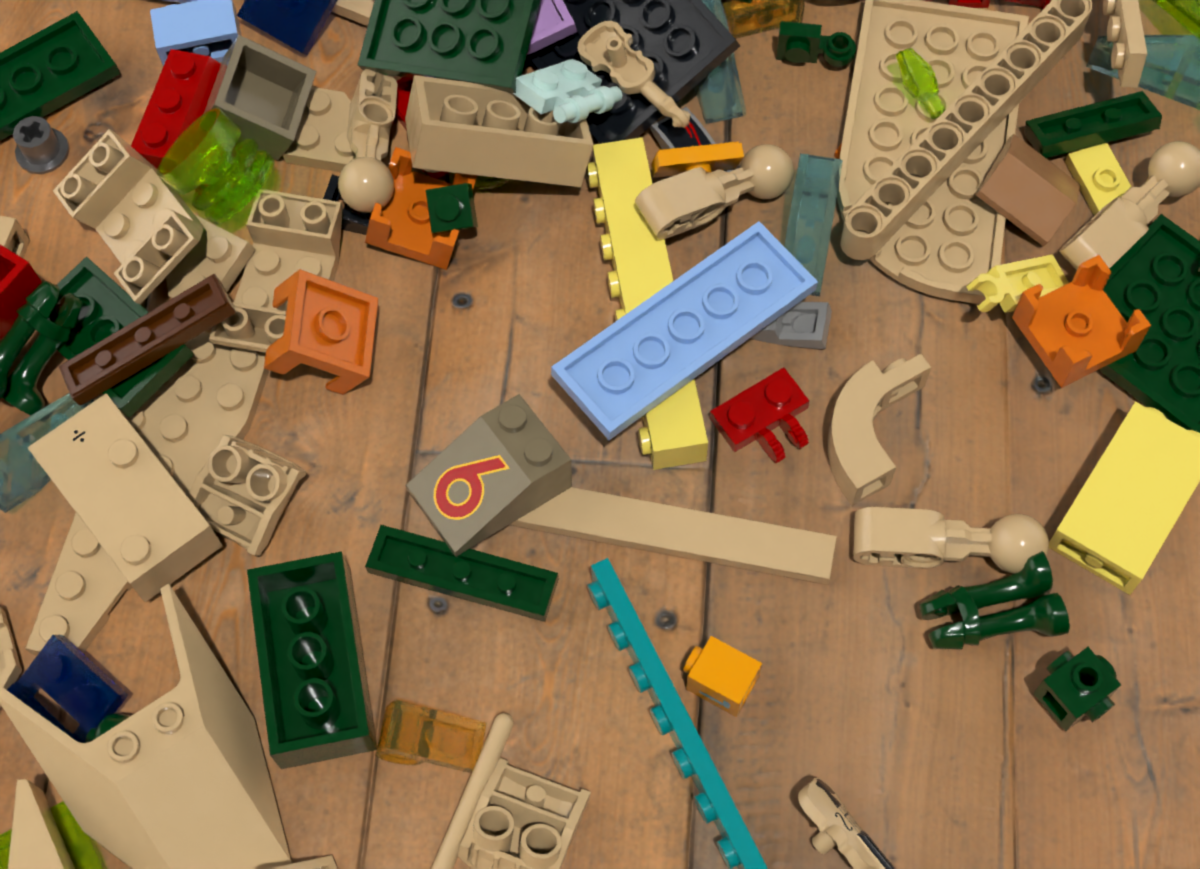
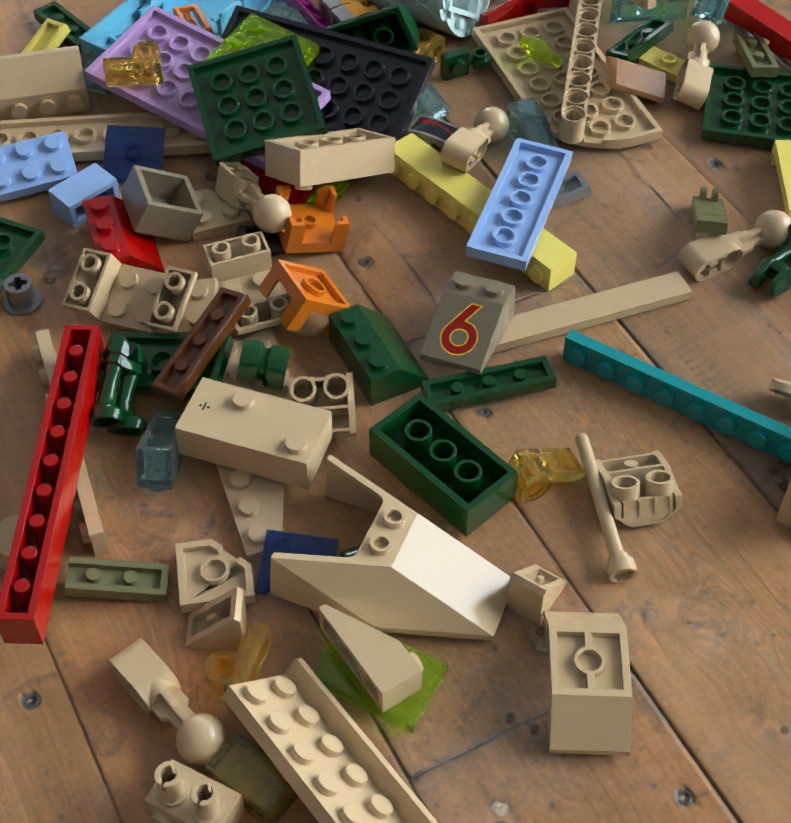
camera: 35 degrees left, 15 degrees down
(197, 397) = (263, 364): none -> dark green wheel
(220, 169) = (167, 239): clear neon green wheel -> none
(364, 451) = (374, 353): none -> dark green slope
(451, 208) = (331, 207): dark green plate -> none
(567, 91) = (351, 122): light aqua plate -> none
(608, 49) = (362, 96): tan piece -> none
(709, 157) = (443, 131): light orange plate -> none
(722, 675) = (680, 357): light orange brick -> none
(760, 410) = (591, 235): red hinge -> none
(852, 447) = (644, 221): tan arch -> none
(943, 473) = (709, 213): none -> olive hinge
(1007, 281) = (672, 117): light yellow plate -> none
(1078, 324) = (716, 122): orange panel -> none

